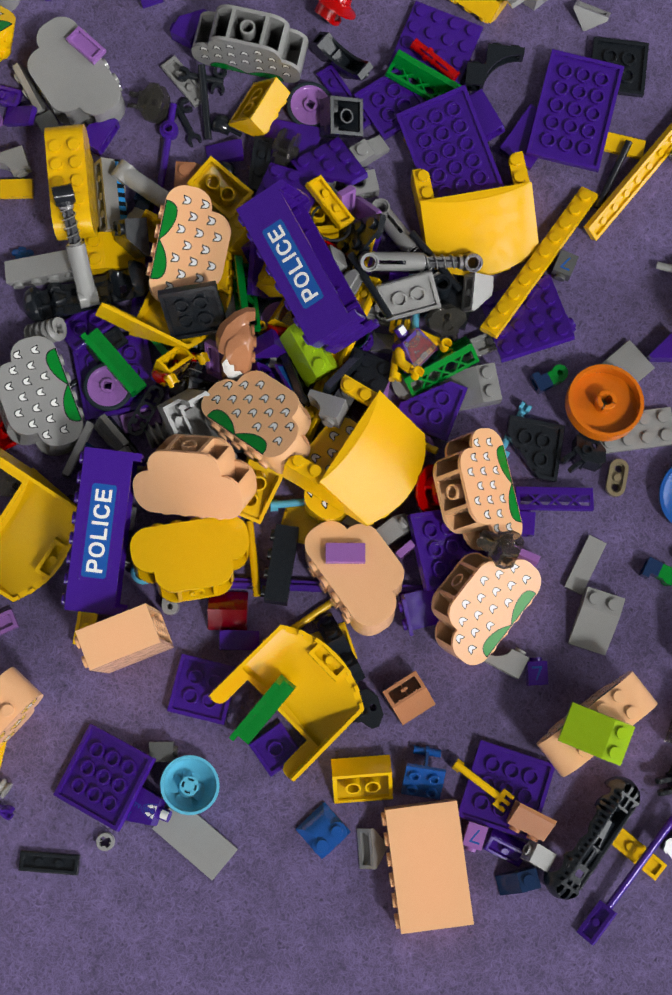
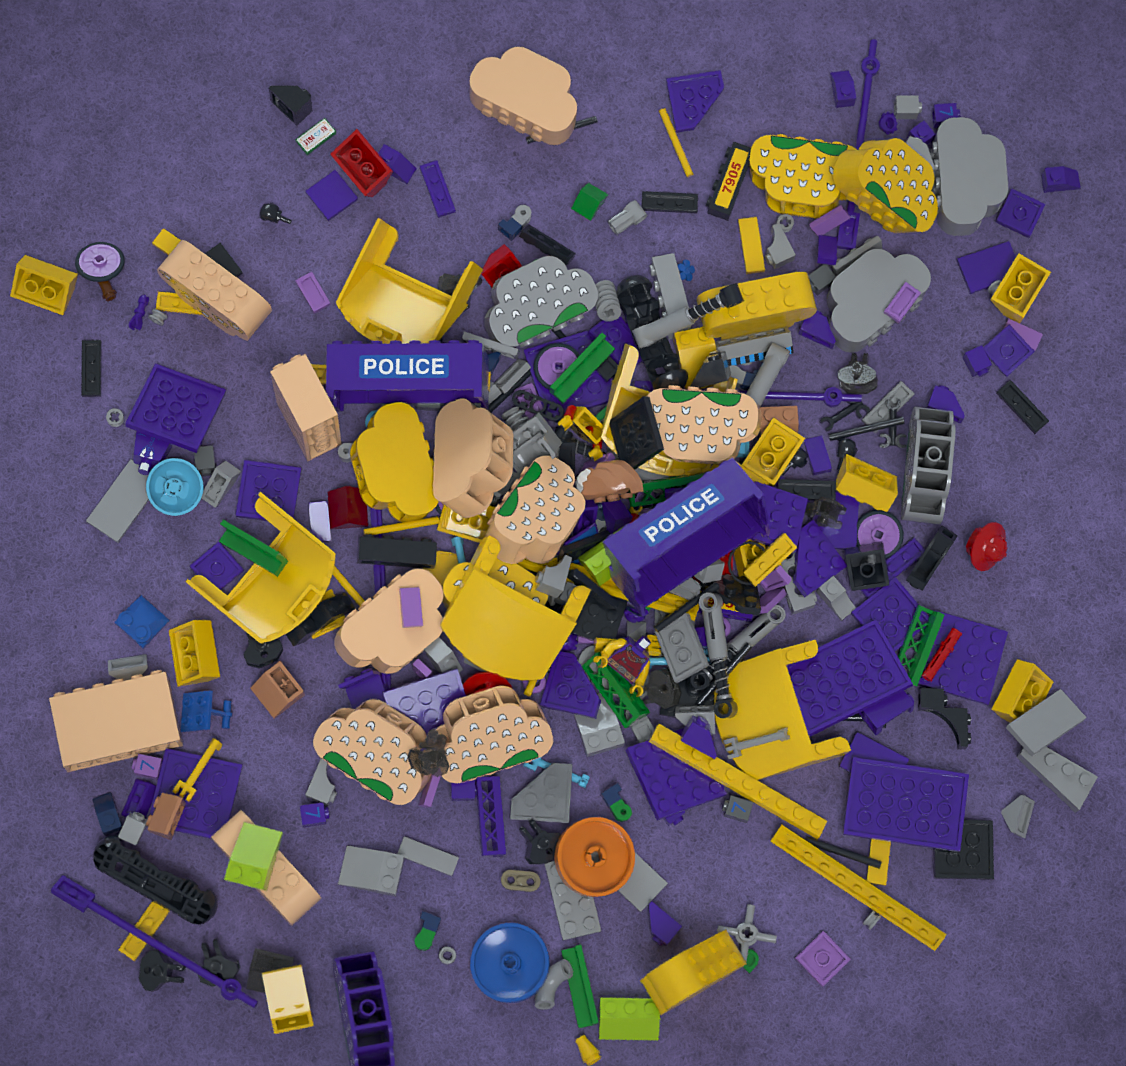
camera: 75 degrees right, 5 degrees down
(188, 737) = (220, 483): none -> light grey arch
(496, 290) = (699, 736): none -> dark purple slope
(508, 257) = (738, 746): none -> light grey hinge

